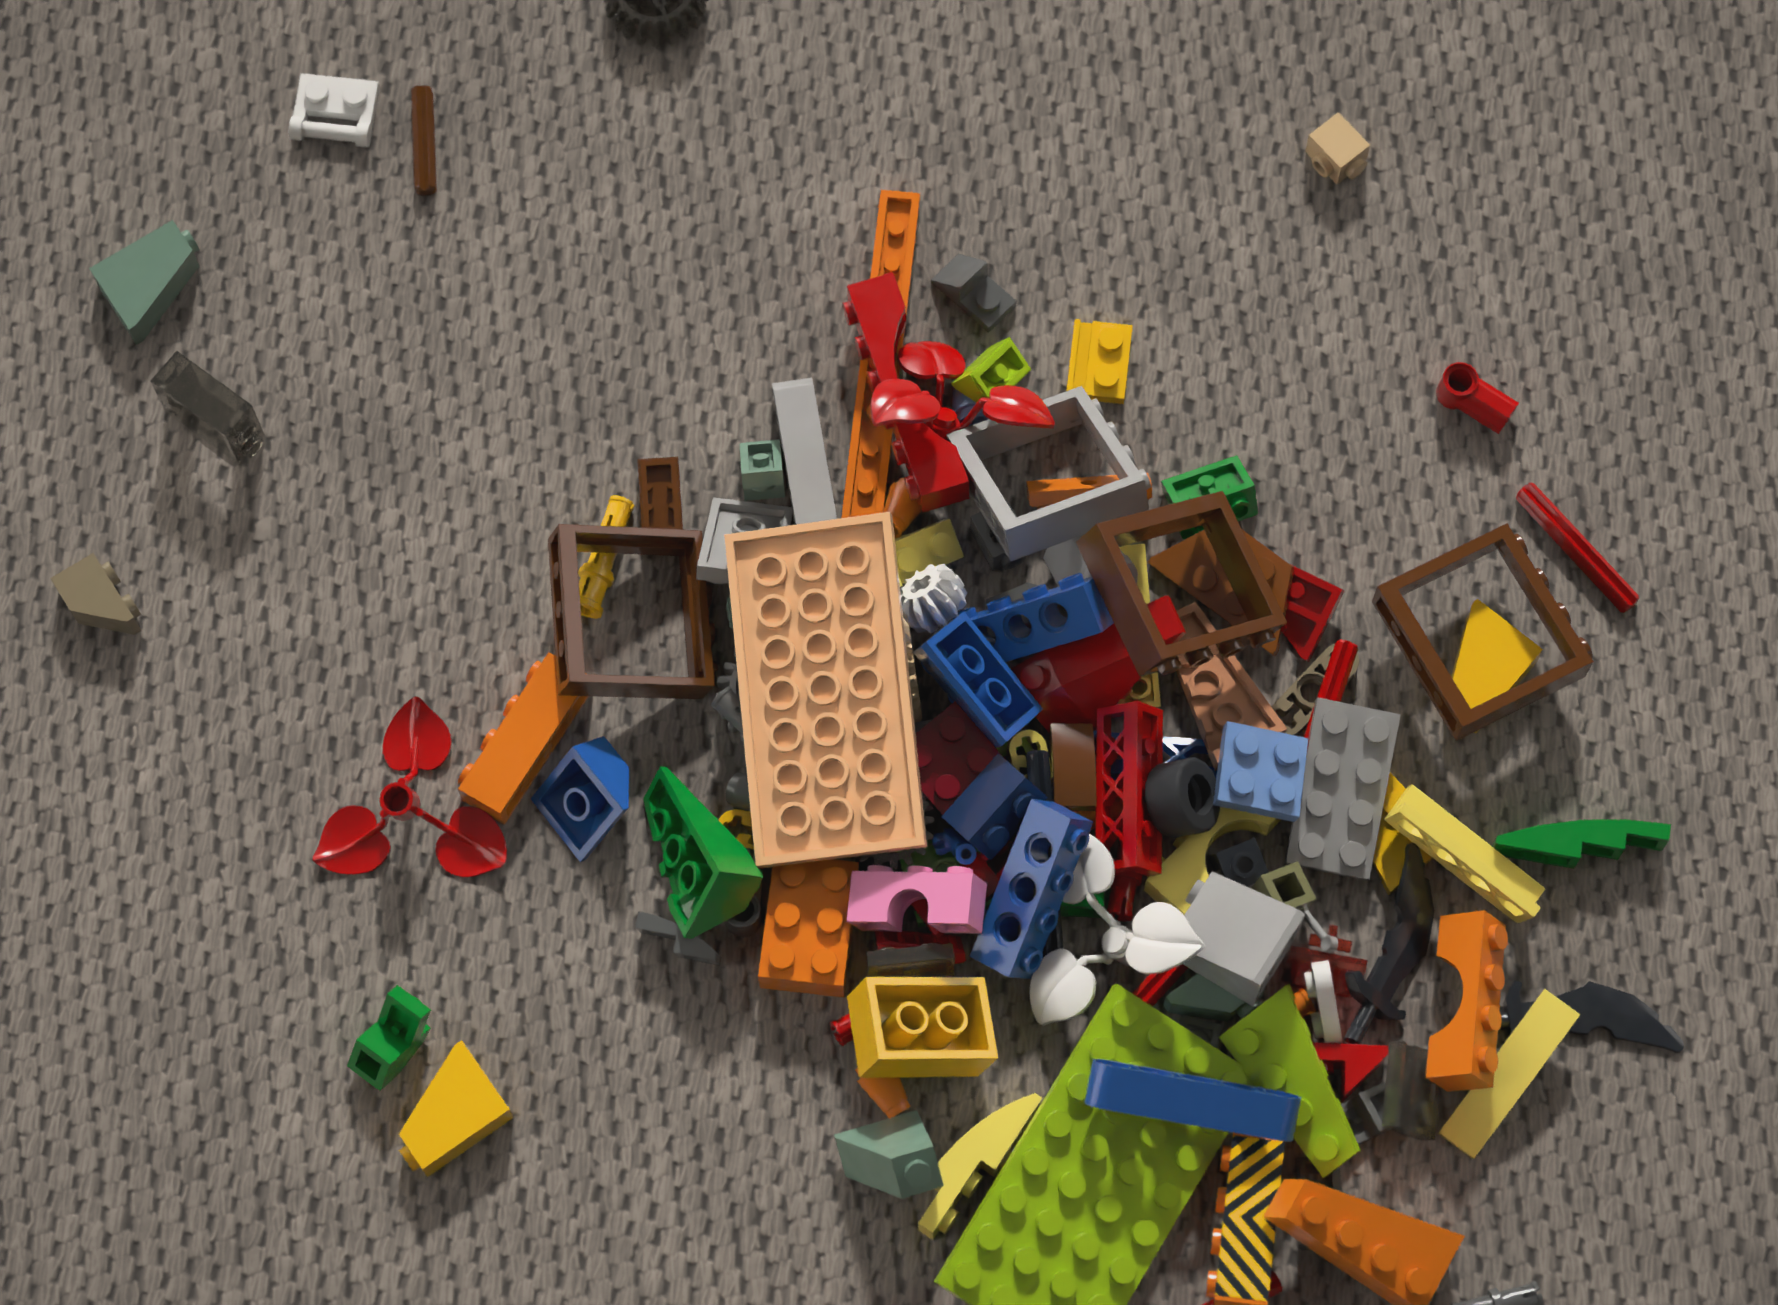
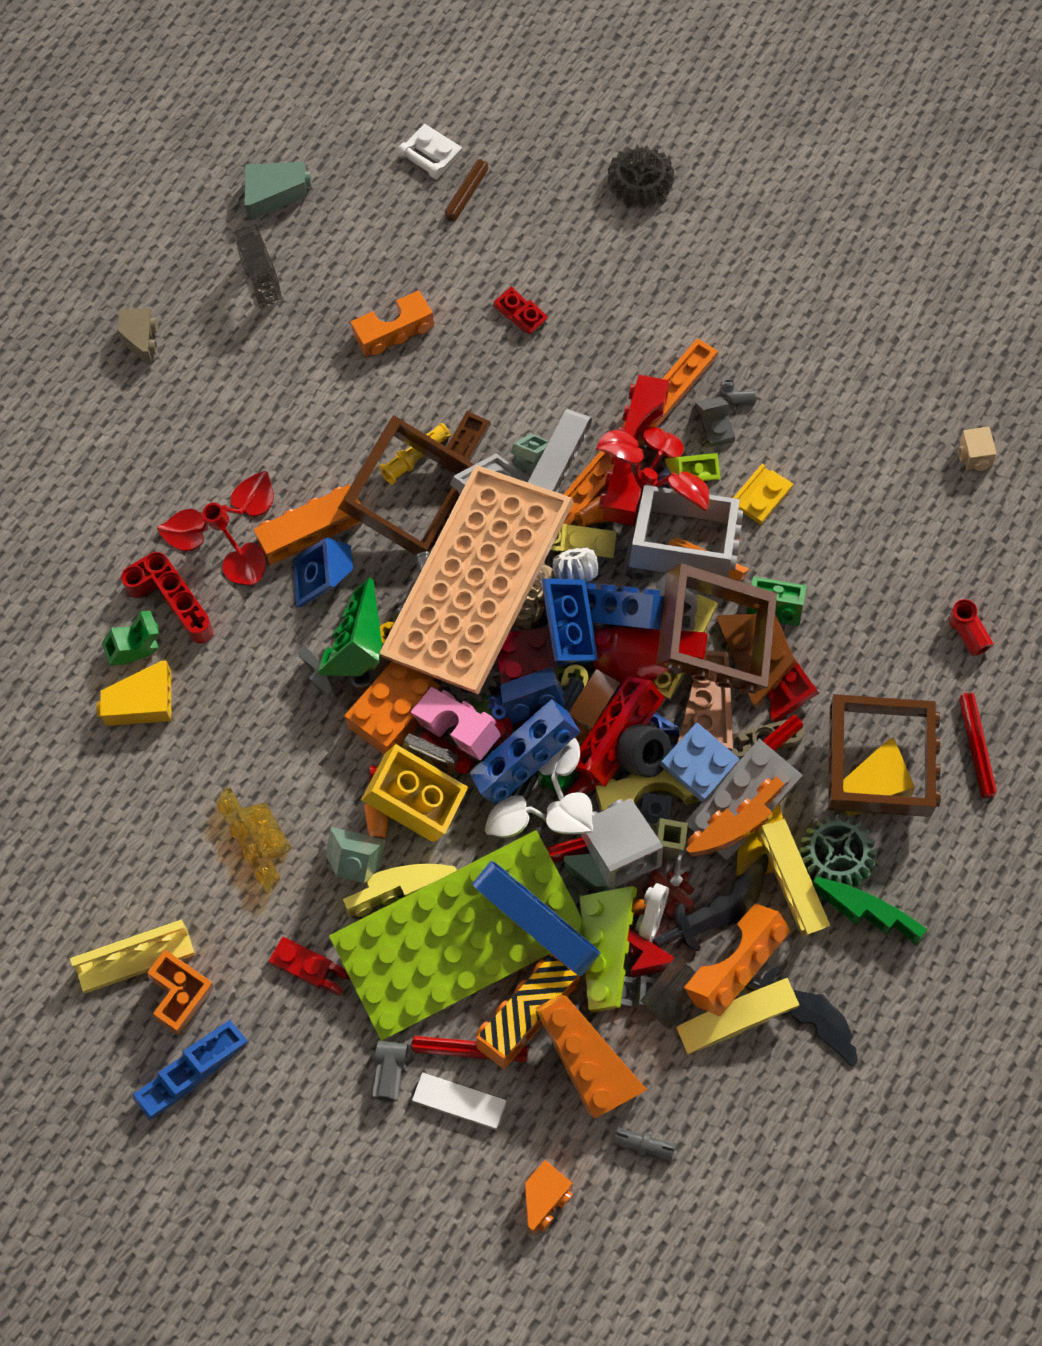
camera: 35 degrees right, 5 degrees down
(406, 949) = (175, 599): none -> red beam
(437, 420) = (377, 335): none -> orange arch
(618, 279) = (519, 311): none -> red slope
(740, 1206) = (257, 836): none -> clear yellow bracket
(978, 244) = (735, 396): none -> dark grey arm
(1356, 838) = (728, 829): none -> orange slope
(1481, 789) = (850, 833): none -> sand green gear

